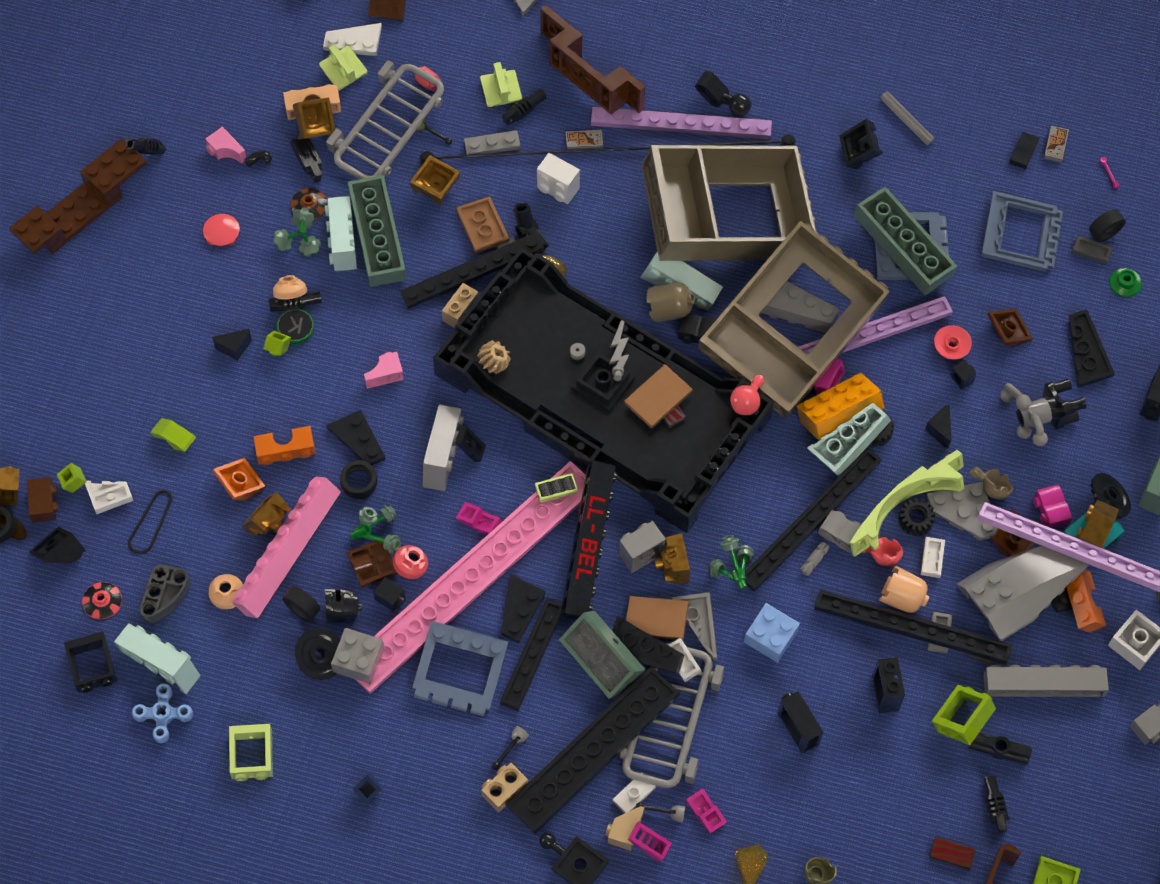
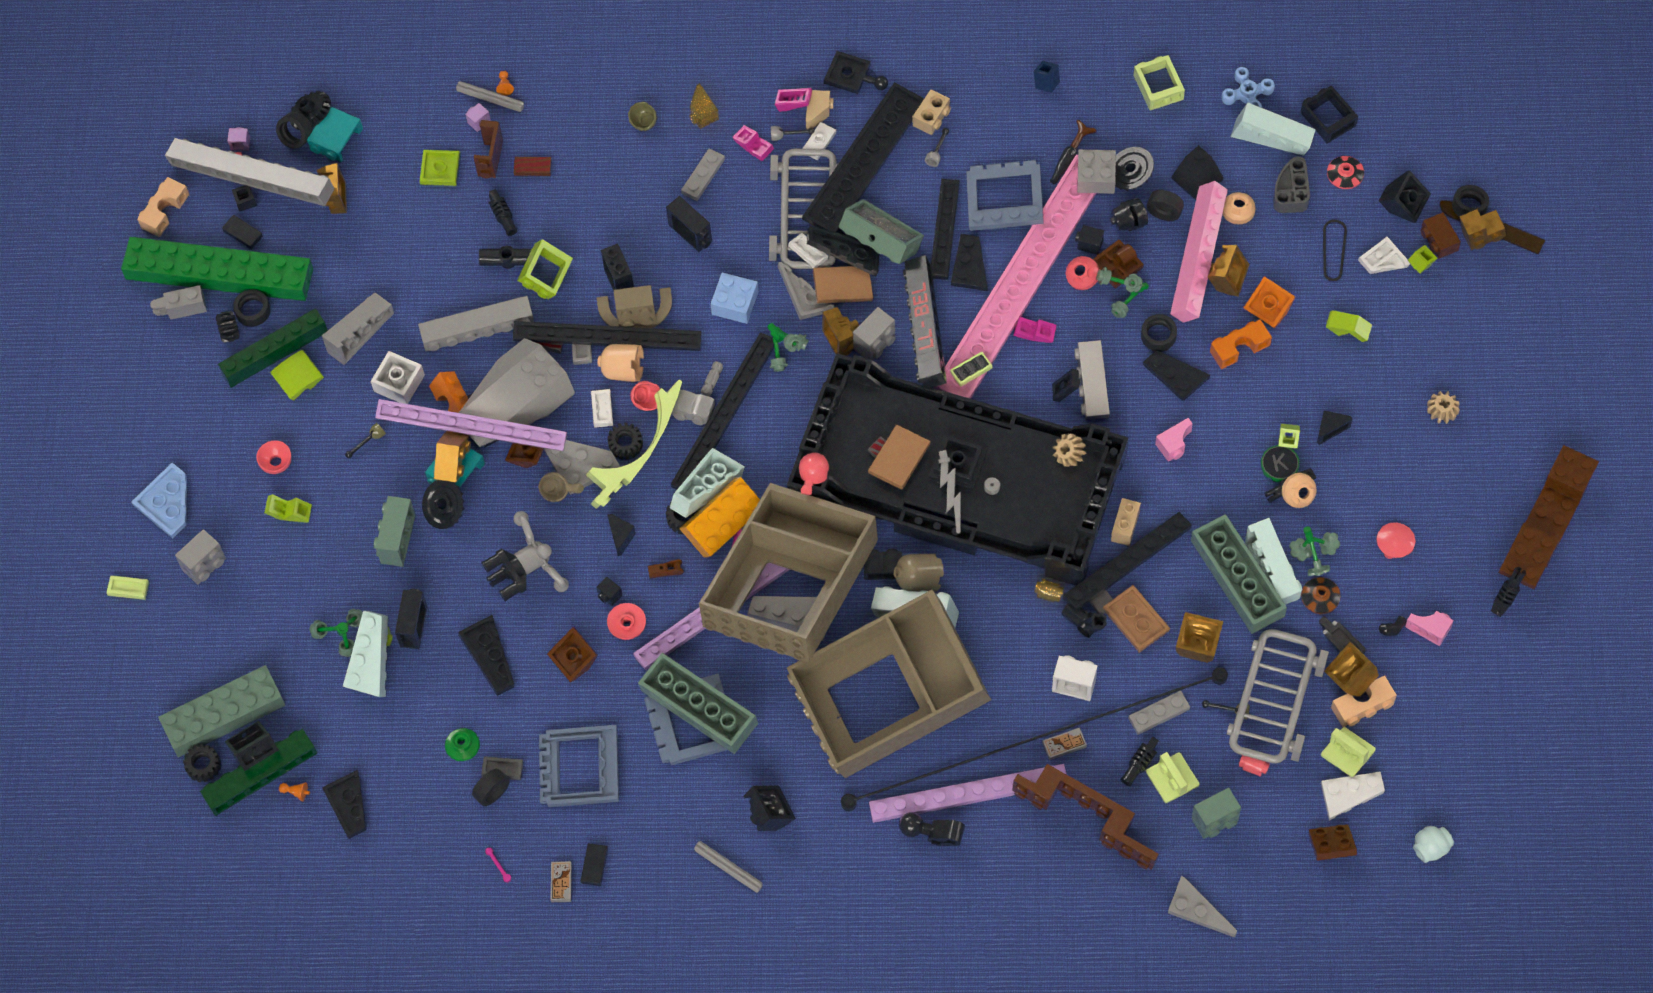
camera: 170 degrees right, 0 degrees up
(128, 330) = (1443, 407): none -> tan gear
(253, 637) = (1196, 170): none -> black slope
(374, 699) = (1070, 151): none -> black piece
(477, 41) = (1216, 813): none -> sand green brick
(769, 789) = (703, 174): none -> light grey plate
(881, 637) = (635, 307): none -> dark tan piece
(908, 384) = (661, 569): none -> reddish brown bar
(1052, 507) = (497, 484): dark pink brick -> none

